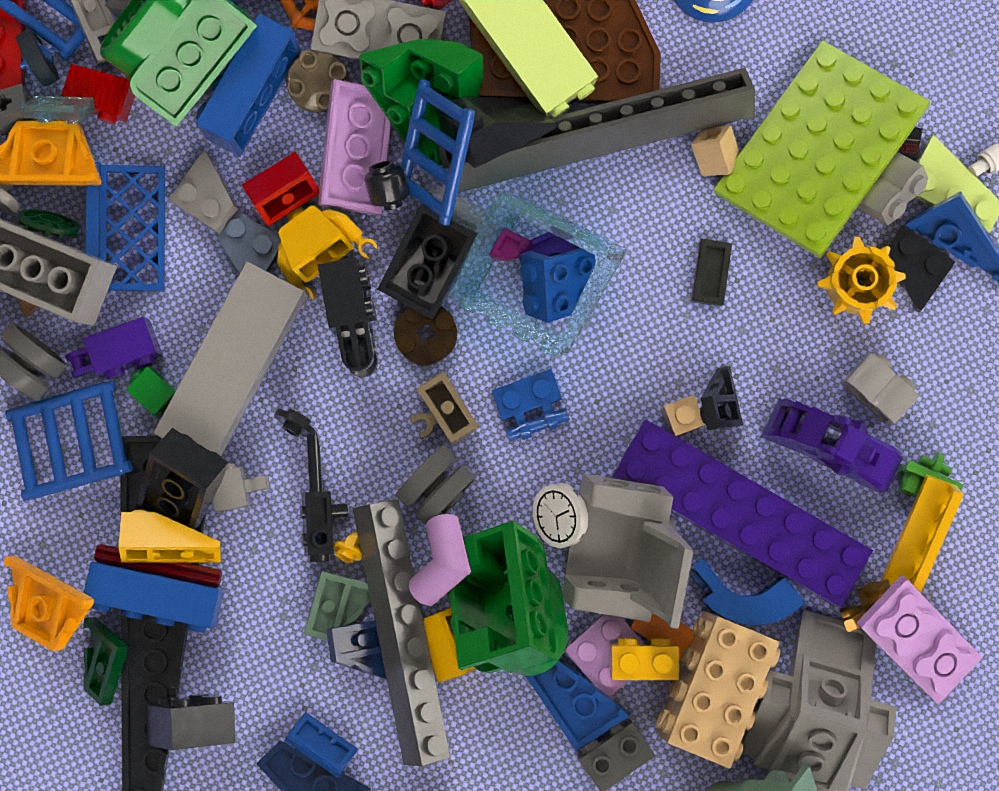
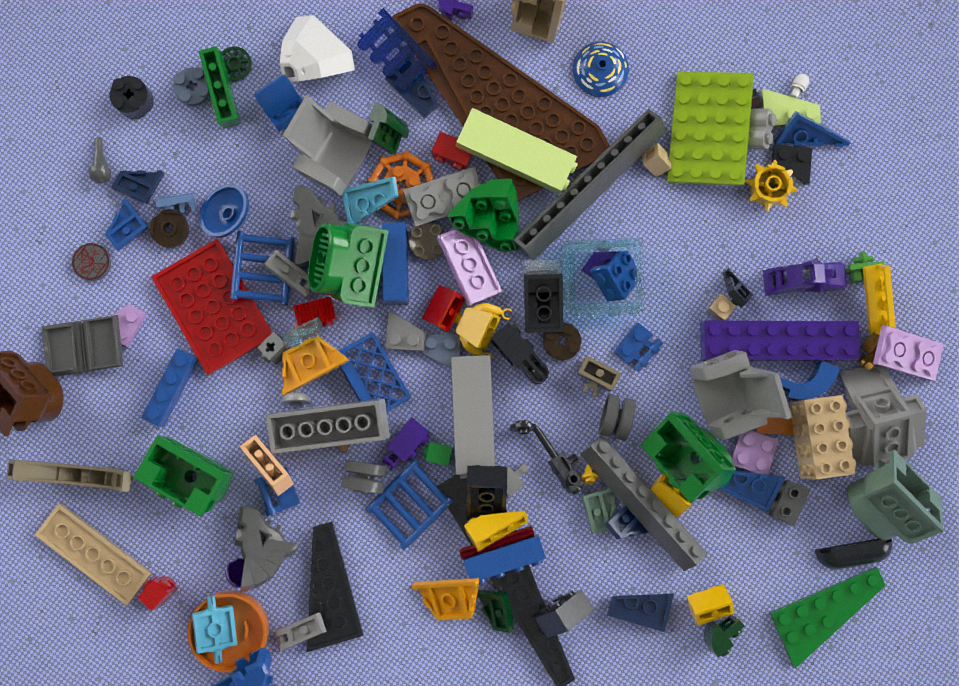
camera: 35 degrees left, 0 degrees up
(37, 57) = (273, 312): black wheel -> none
(48, 223) = (331, 396): dark green wheel -> none
(321, 744) = (635, 585): blue plate -> none
(387, 185) = (498, 275): black head -> none
(448, 561) = (650, 451): lavender brick -> none
(457, 148) = (532, 235): blue bar -> none
(497, 126) = (537, 214): black slope -> none
(509, 246) = (579, 270): magenta tile -> none
(560, 515) = (688, 395): white tile -> none
(644, 661) = (776, 445): yellow brick -> none
(711, 272) = (690, 224): pearl dark grey tile -> none
(881, 388) = (812, 236): light grey brick -> none

